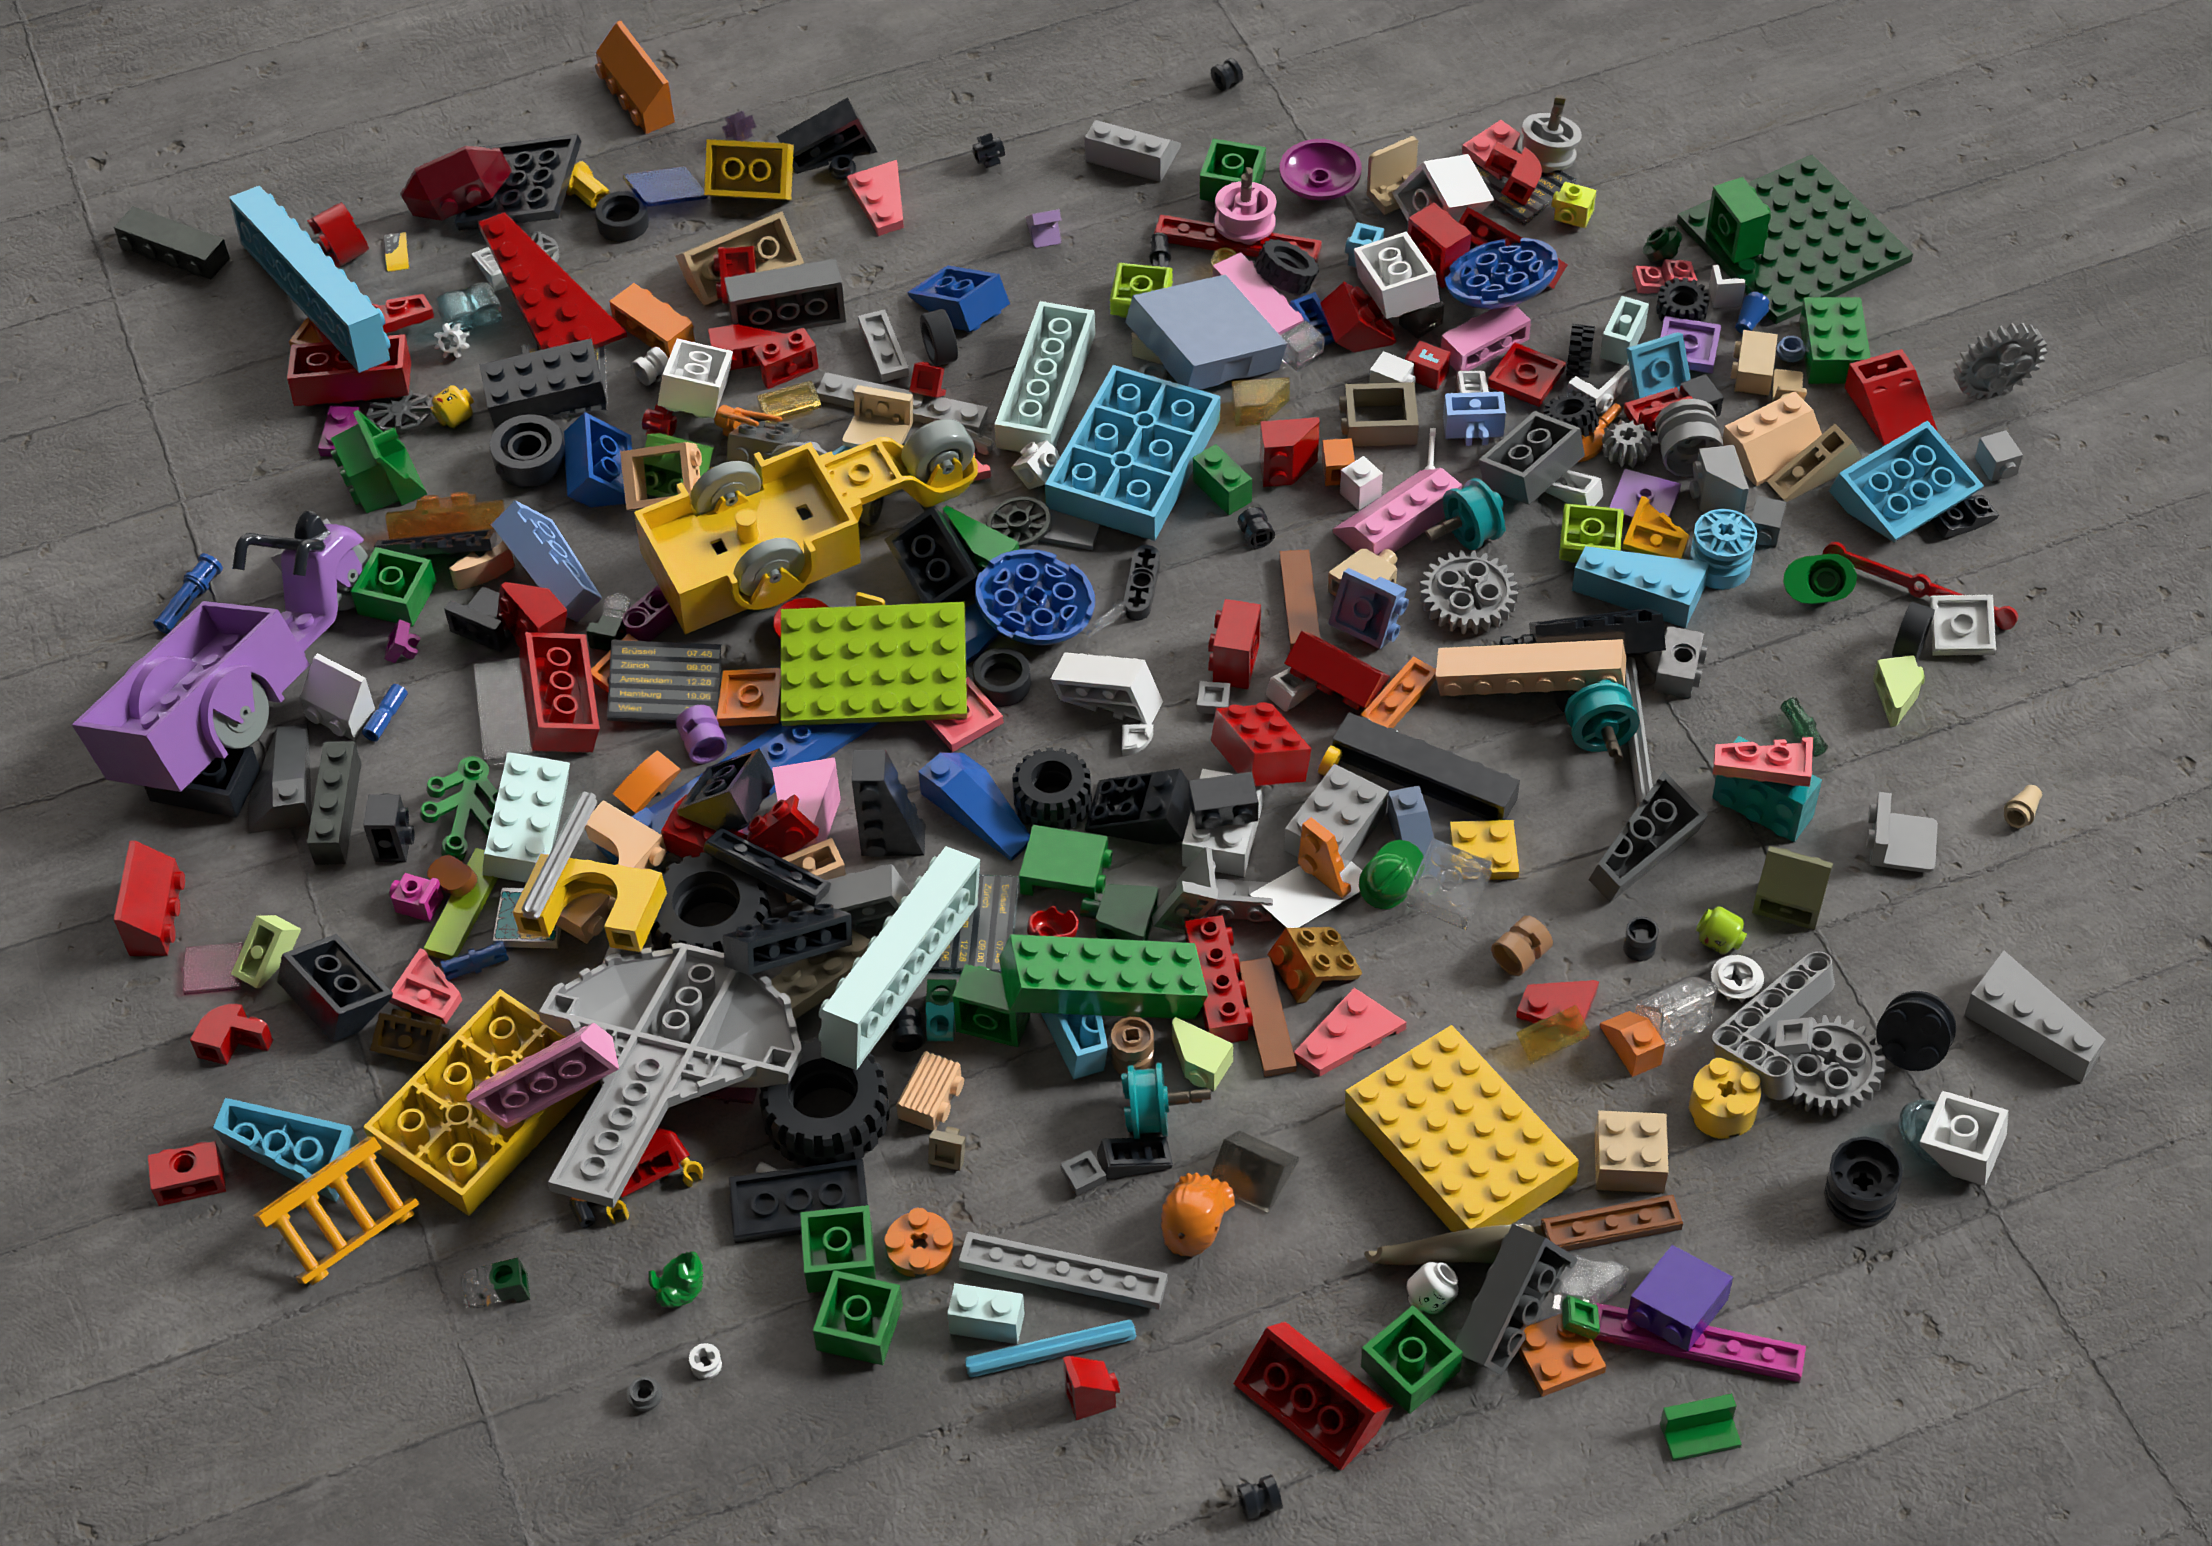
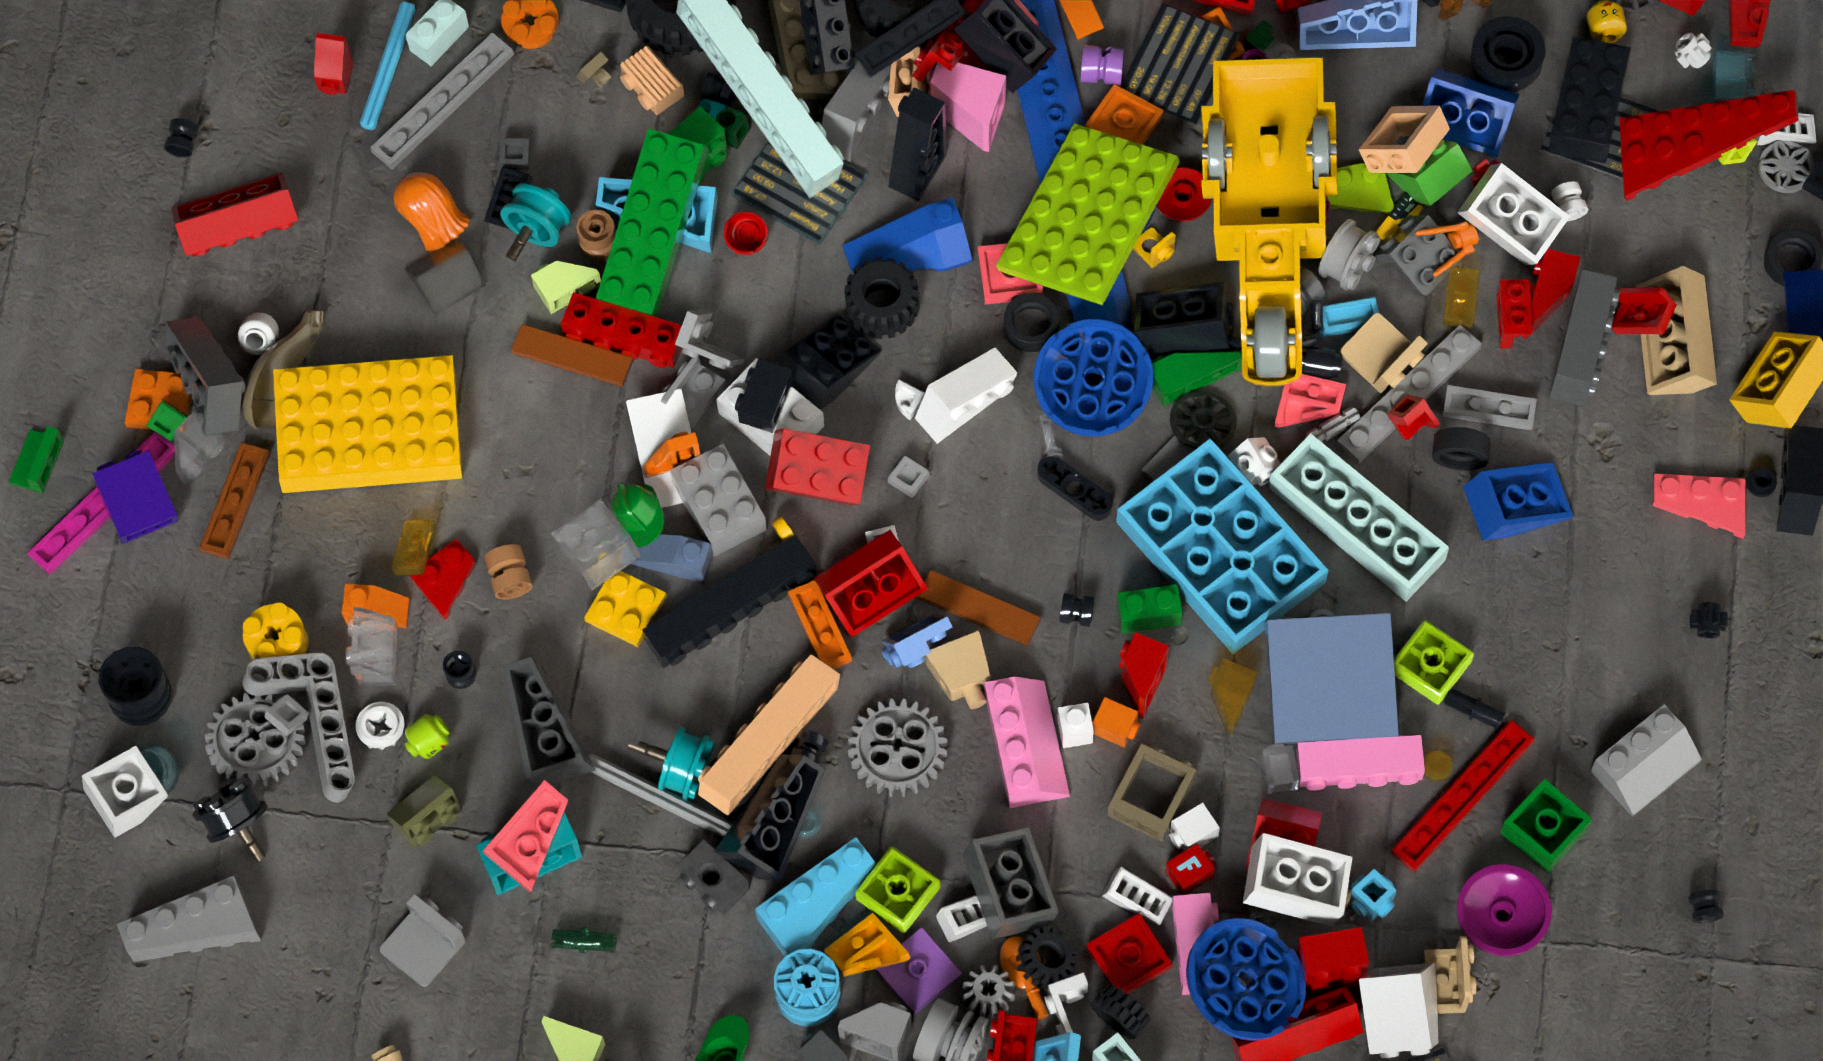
camera: 120 degrees right, 15 degrees up
(650, 319) = (1629, 225): orange brick -> none
(1044, 228) = (1577, 622): lavender slope -> none
(1065, 861) = (802, 273): green panel -> none
(1123, 912) = (727, 294): dark green torso -> none
(1235, 643) = (943, 511): red brick -> none
(1245, 210) = (1477, 801): bright pink wheel -> none
(1286, 266) = (1392, 826): black tyre -> none
(1311, 956) = (596, 415): pearl gold bracket -> none
(1312, 303) = (1322, 793): blue slope -> none
(1348, 1029) = (520, 407): coral wing -> none
(1411, 1359) = (211, 285): green brick -> none
(1431, 449) = (1065, 804): white hinge -> none
(1471, 515) = (971, 787): teal wheel -> none
(1474, 416) = (1095, 866): light blue brick -> none
(1631, 1151) = (277, 542): tan brick -> none

